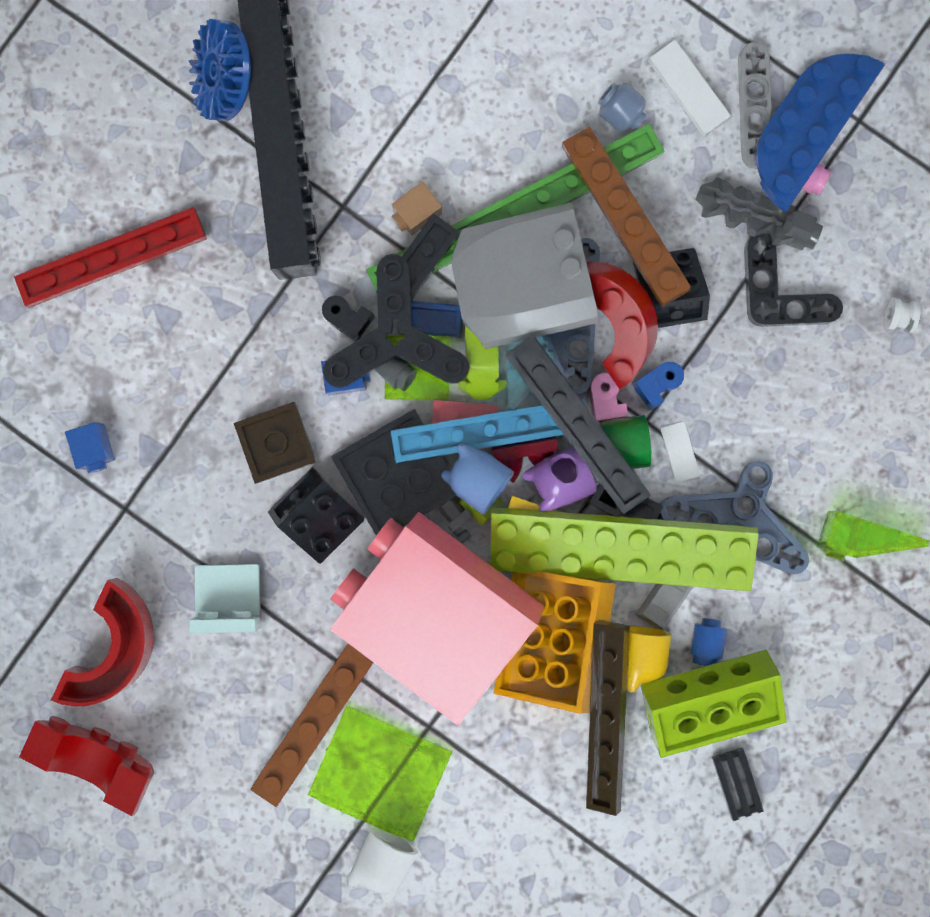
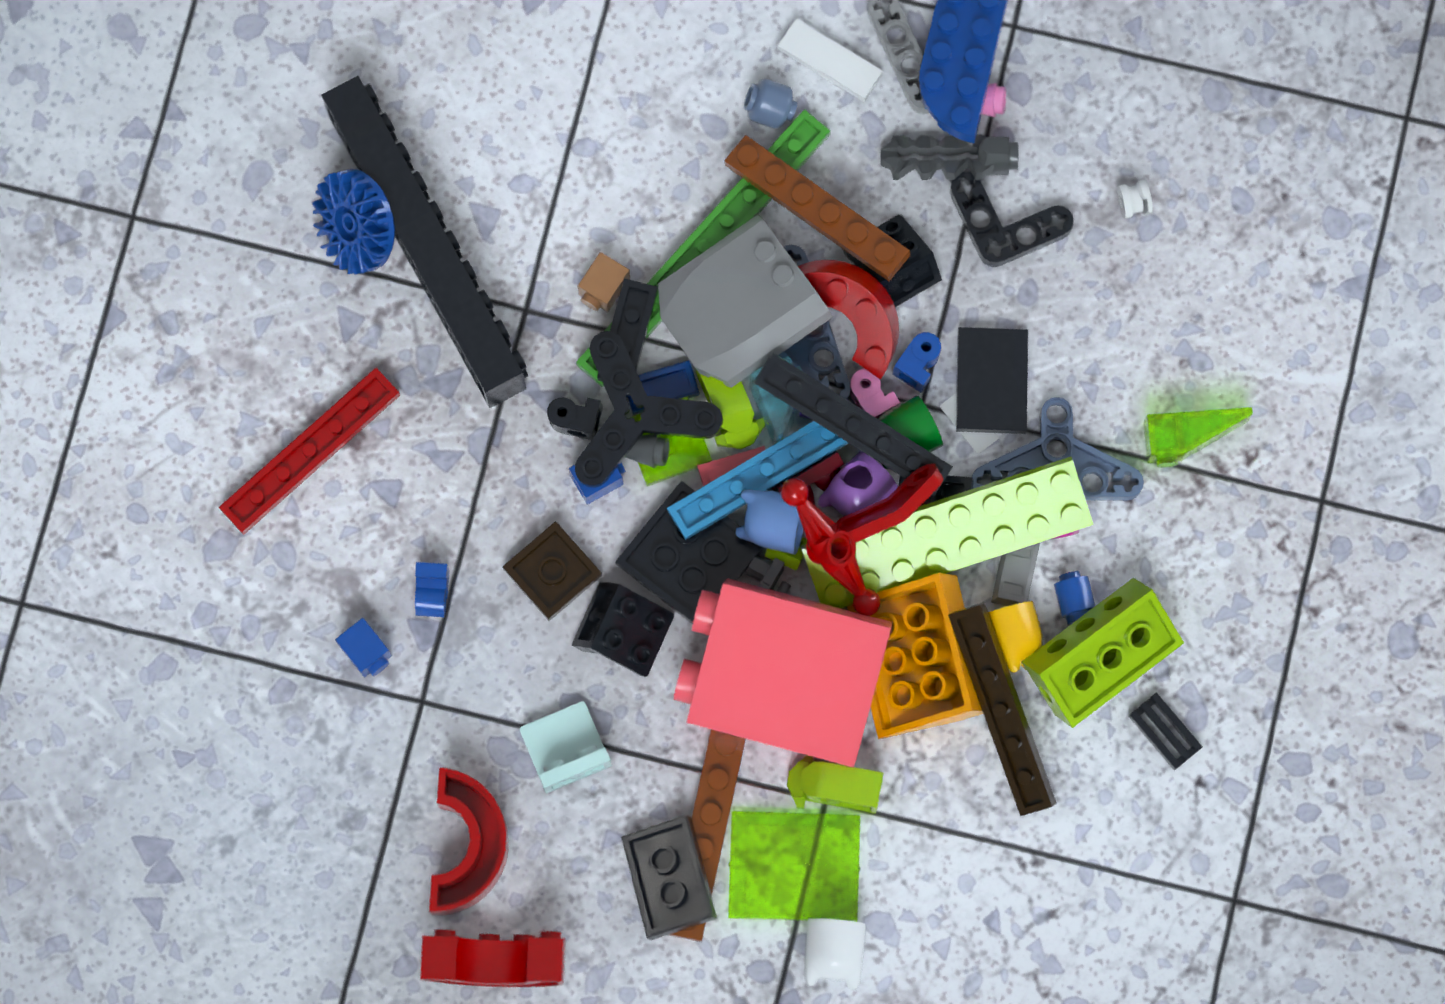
camera: 20 degrees left, 10 degrees down
(166, 419) = (431, 589): none -> blue leg
(269, 746) = (669, 877): none -> black tile
(435, 726) = (834, 785): none -> lime piece
(520, 523) = (835, 543): none -> red piece
(714, 424) = (992, 380): none -> black tile

